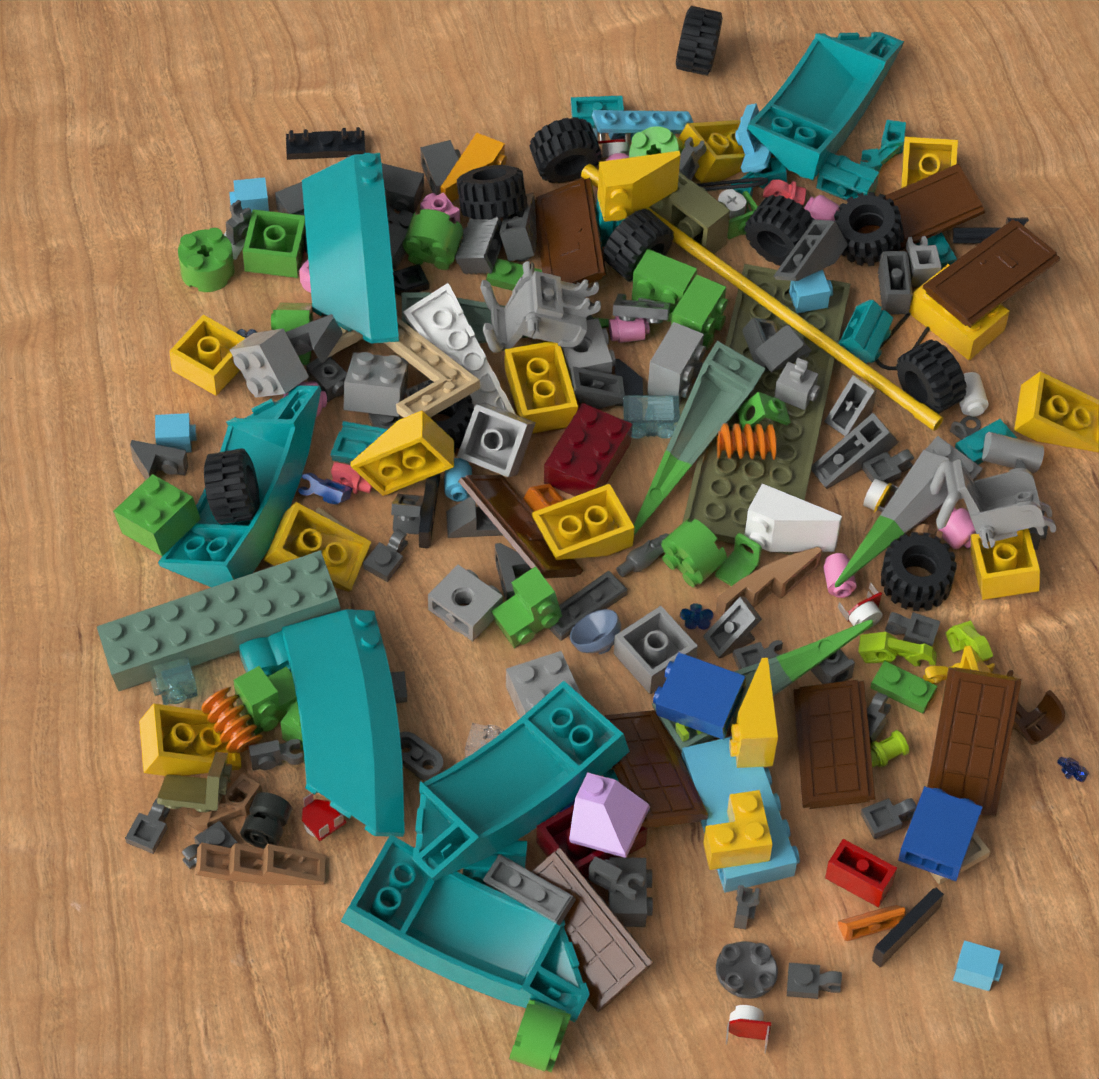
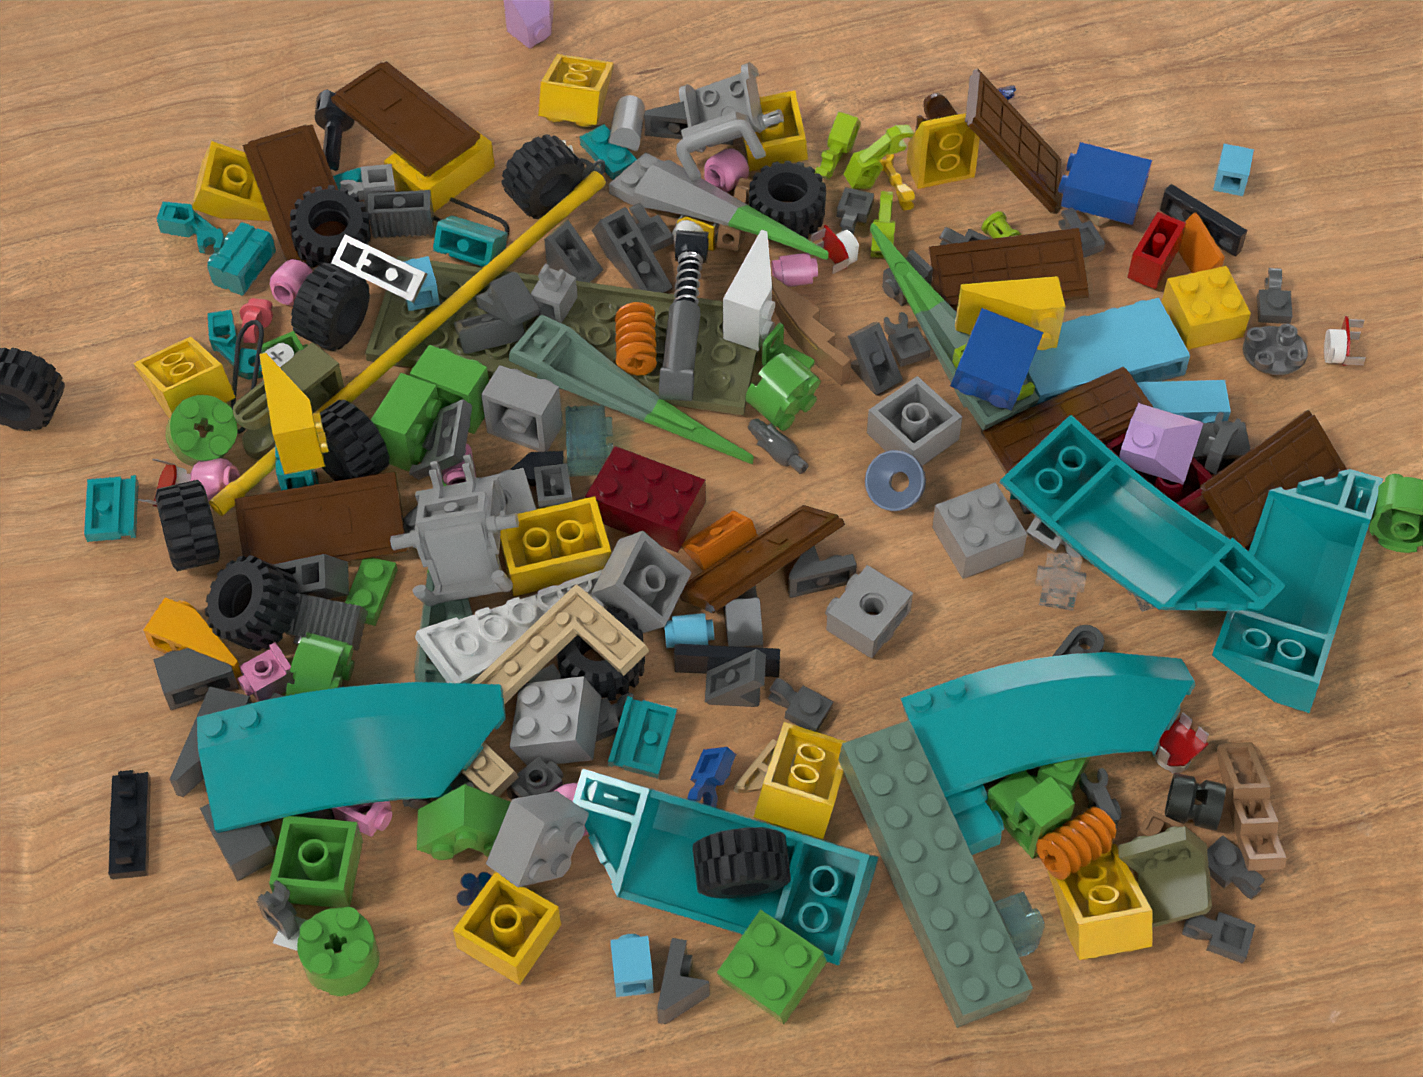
camera: 90 degrees left, 0 degrees up
(251, 194) = (225, 906): medium azure brick -> none
(317, 336) = (506, 770): dark grey slope -> none
(348, 476) = (691, 741): coral piece -> none
(406, 454) = (679, 657): yellow slope -> none
(528, 610) = (874, 540): bright green brick -> none
(529, 889) = (1255, 509): dark grey tile -> none
(586, 525) = (756, 489): yellow slope -> none
(594, 597) = (849, 503): dark grey tile -> none
(619, 122) = (149, 445): medium azure bracket -> none
(675, 870) = (1190, 399): none -> medium azure brick
(690, 157) = (224, 389): dark grey plate -> none
(696, 616) = (853, 399): clear blue plant -> none
(704, 471) = (683, 318): none -> dark grey piece
(743, 838) = (1148, 327): yellow brick -> none
(746, 905) = (1213, 347): dark grey plate -> none
(756, 154) = (181, 332): medium azure bracket -> none
(764, 407) = (591, 318): bright green bracket -> none
(793, 910) = (1206, 307): none -> yellow brick
(824, 99) = (124, 269): teal slope -> none
(903, 687) = (920, 224): bright green plate -> none
(1006, 625) = (839, 141): none -> lime piece

